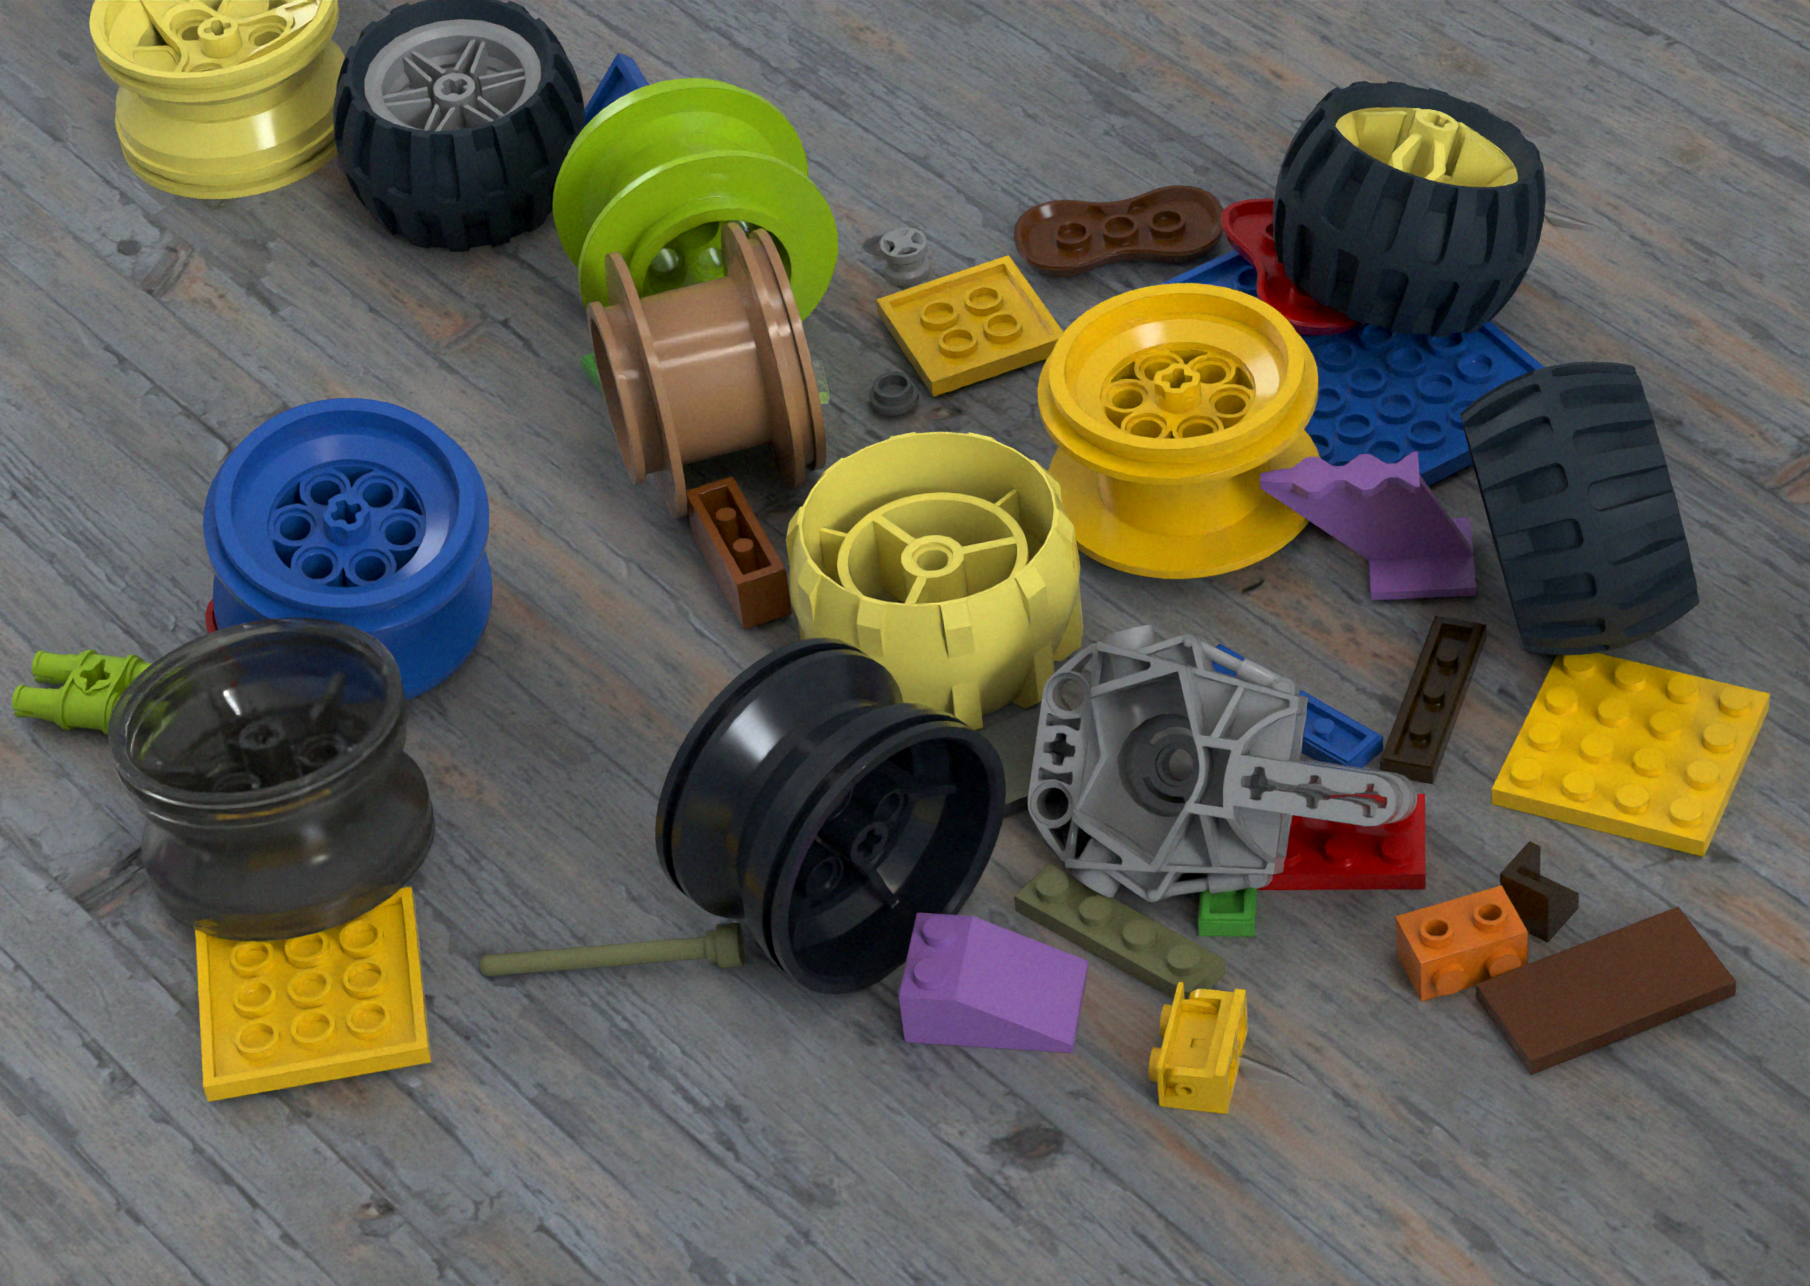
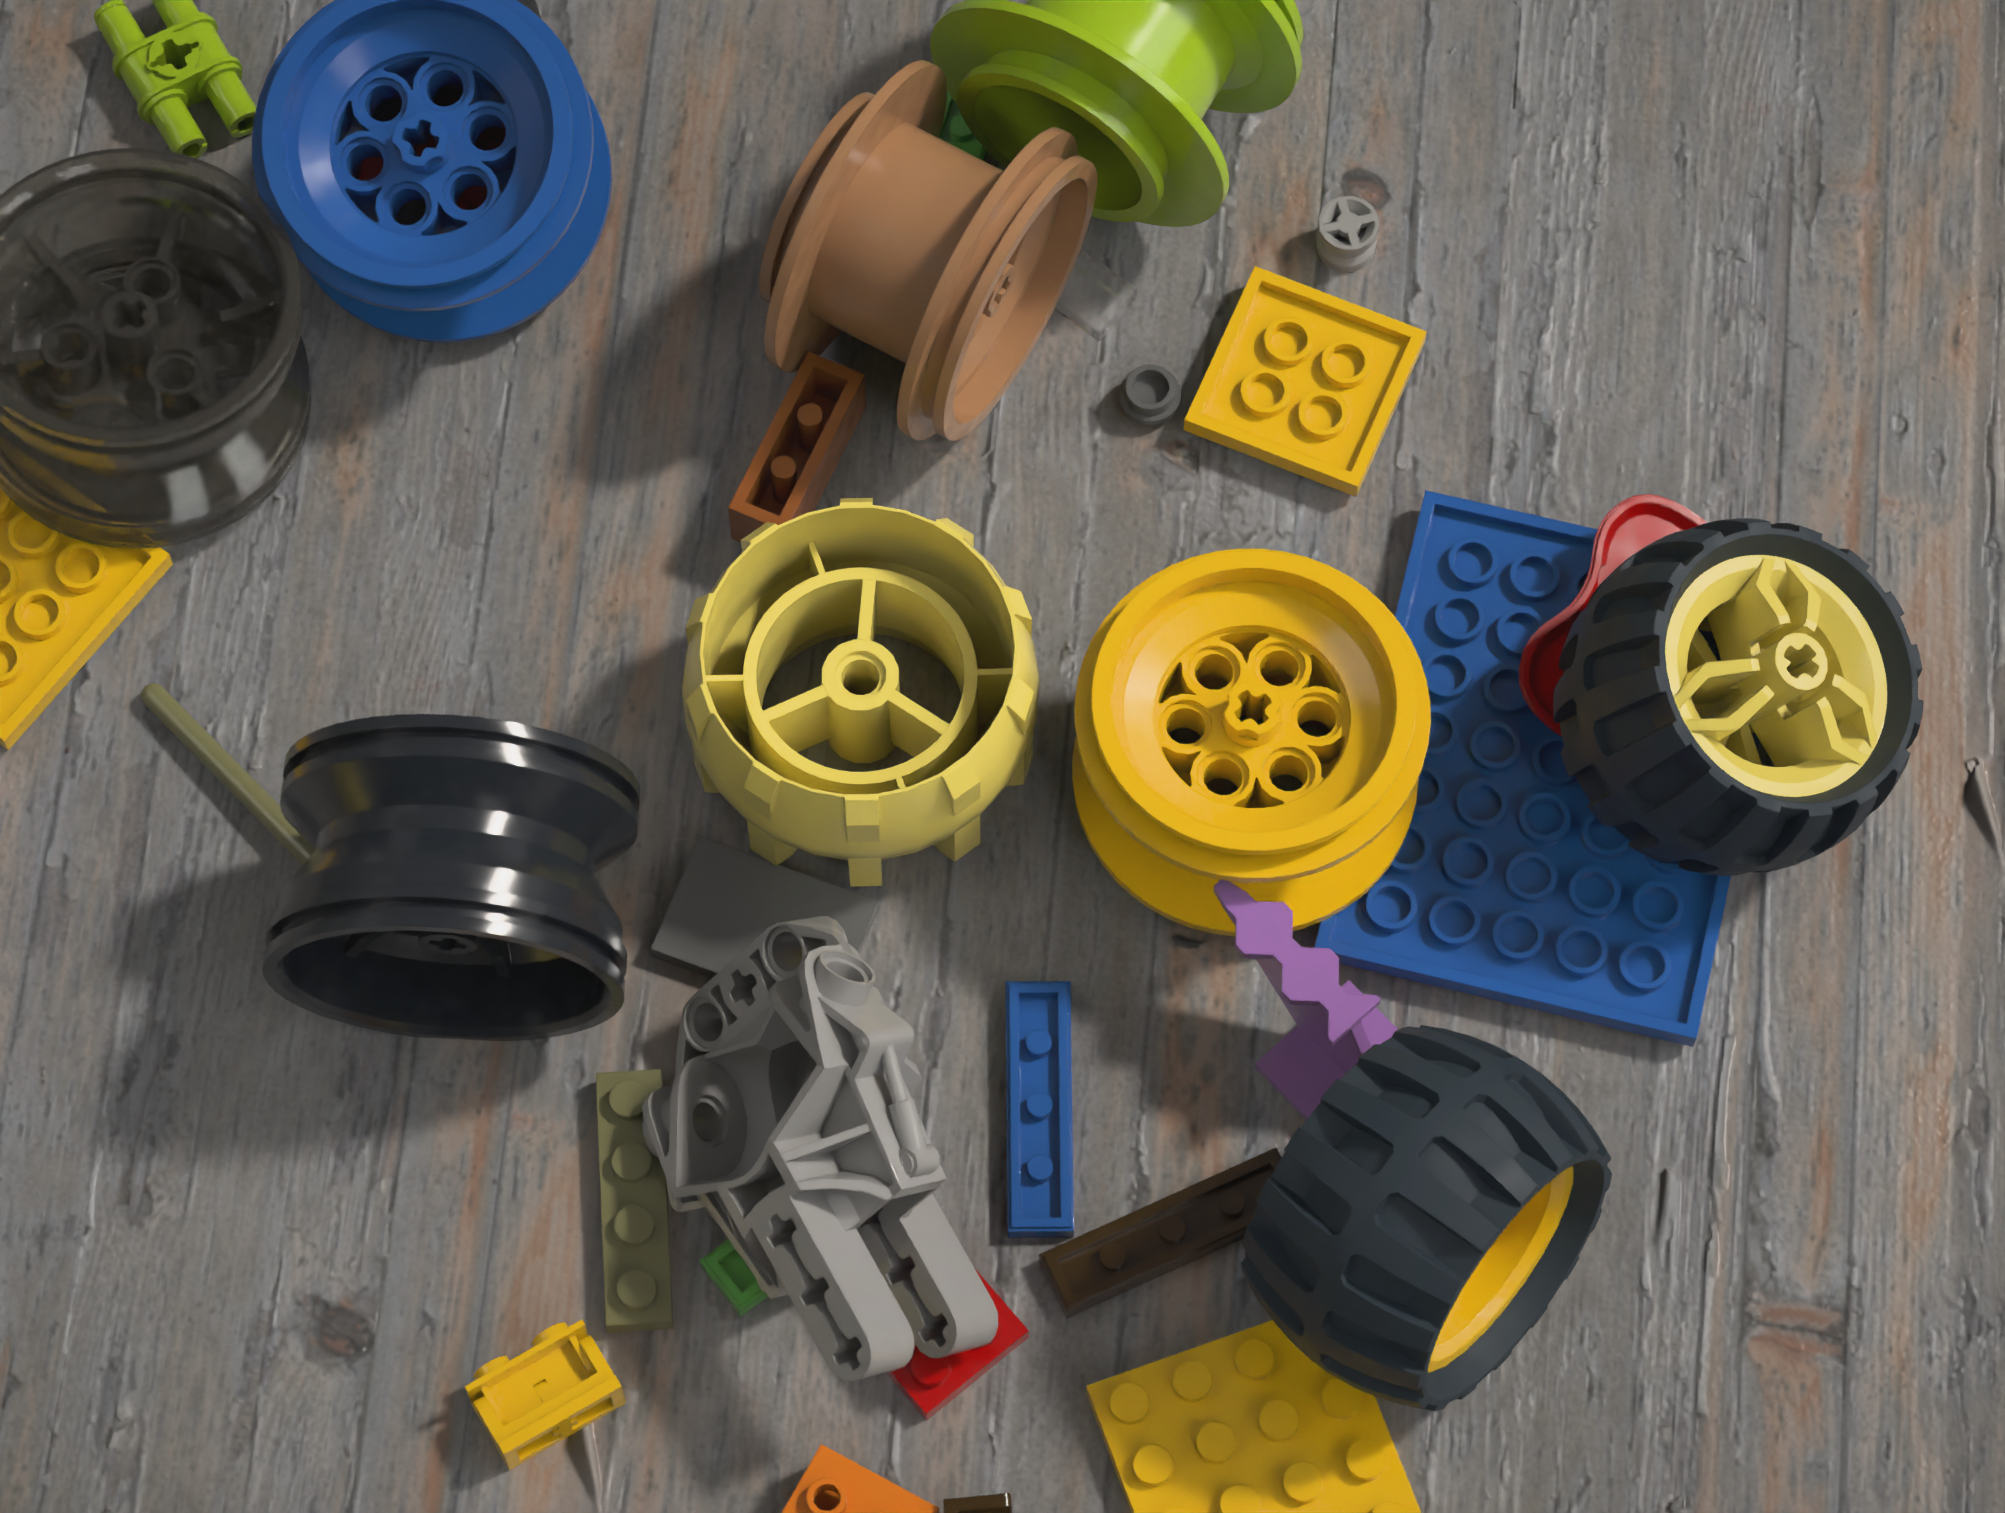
camera: 40 degrees right, 25 degrees up
(988, 987) = (468, 1150): medium lavender slope -> none
(1159, 225) = (1525, 369): reddish brown plate -> none

